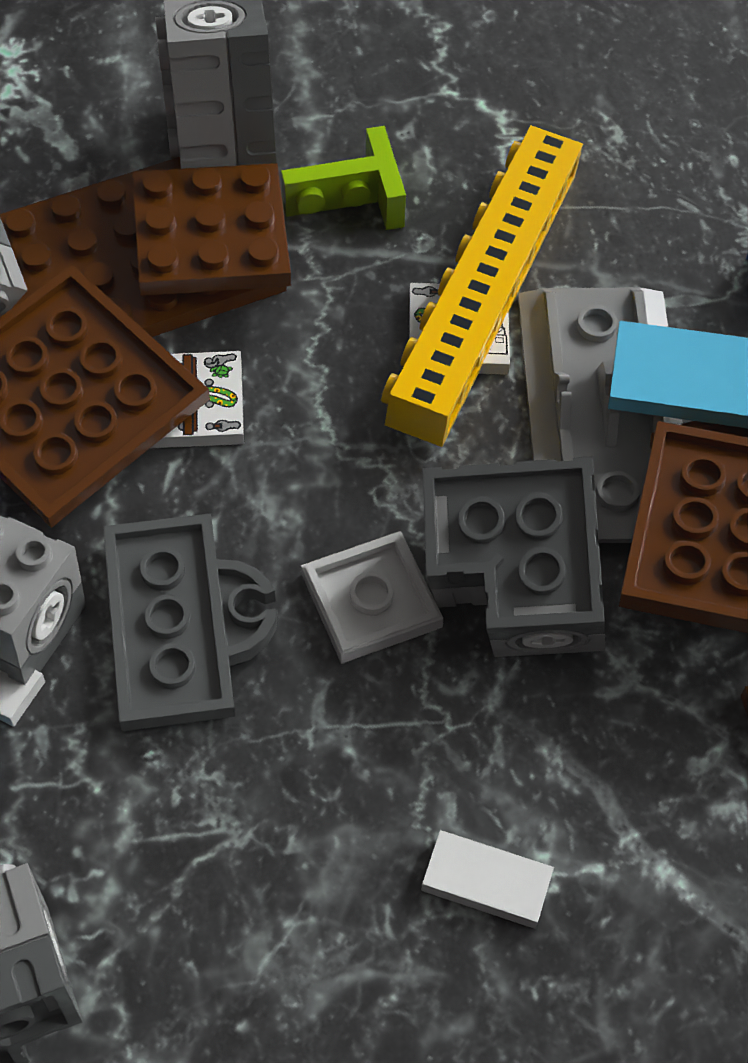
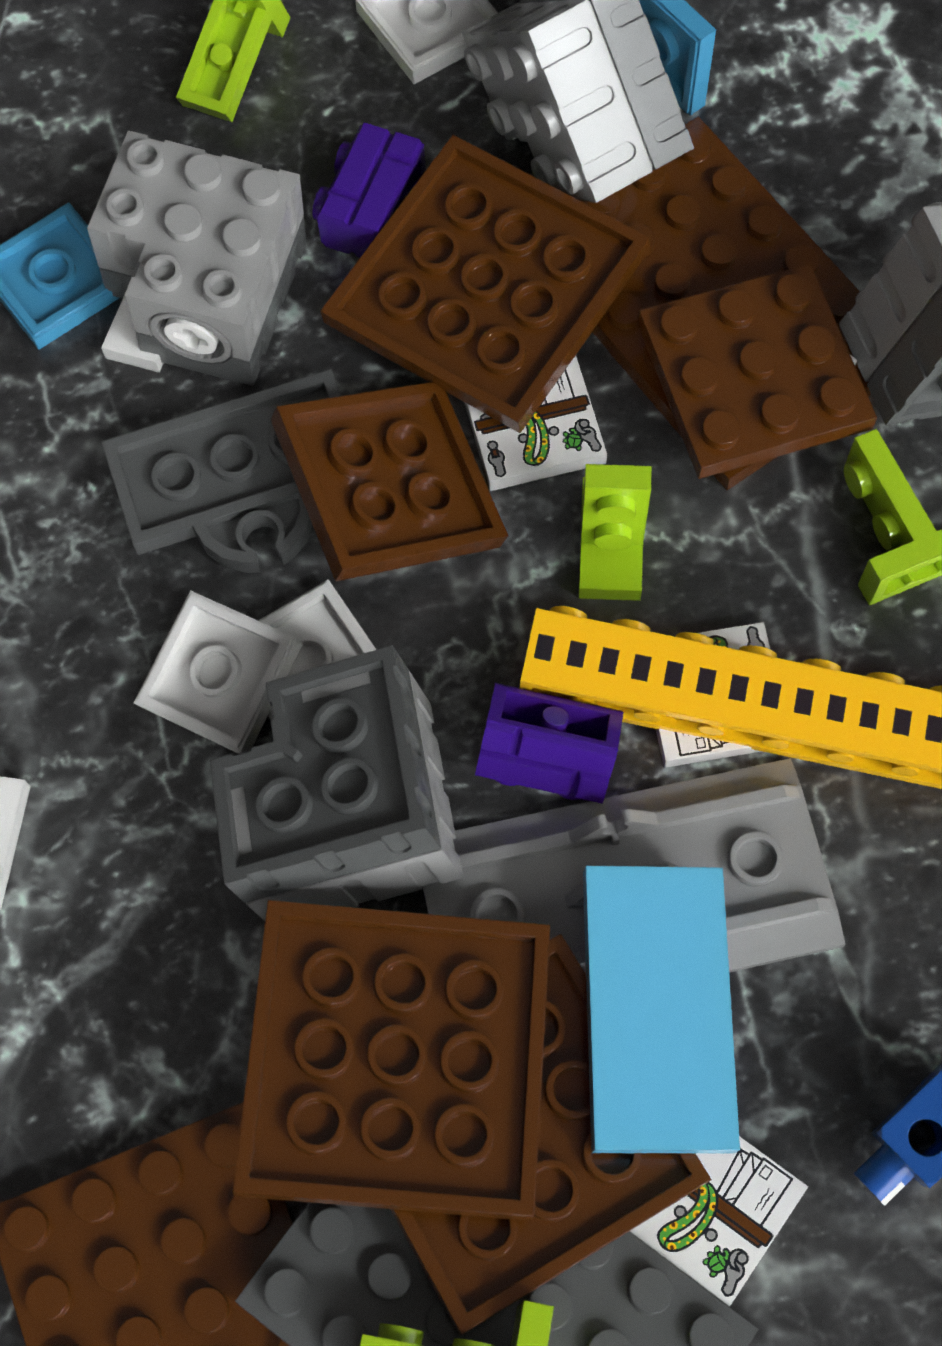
camera: 85 degrees right, 10 degrees up
(232, 493) = (388, 479): none -> reddish brown plate
(310, 357) = (613, 531): none -> lime bracket
(373, 657) = (217, 672): none -> white tile
(490, 417) = (549, 743): none -> dark purple brick

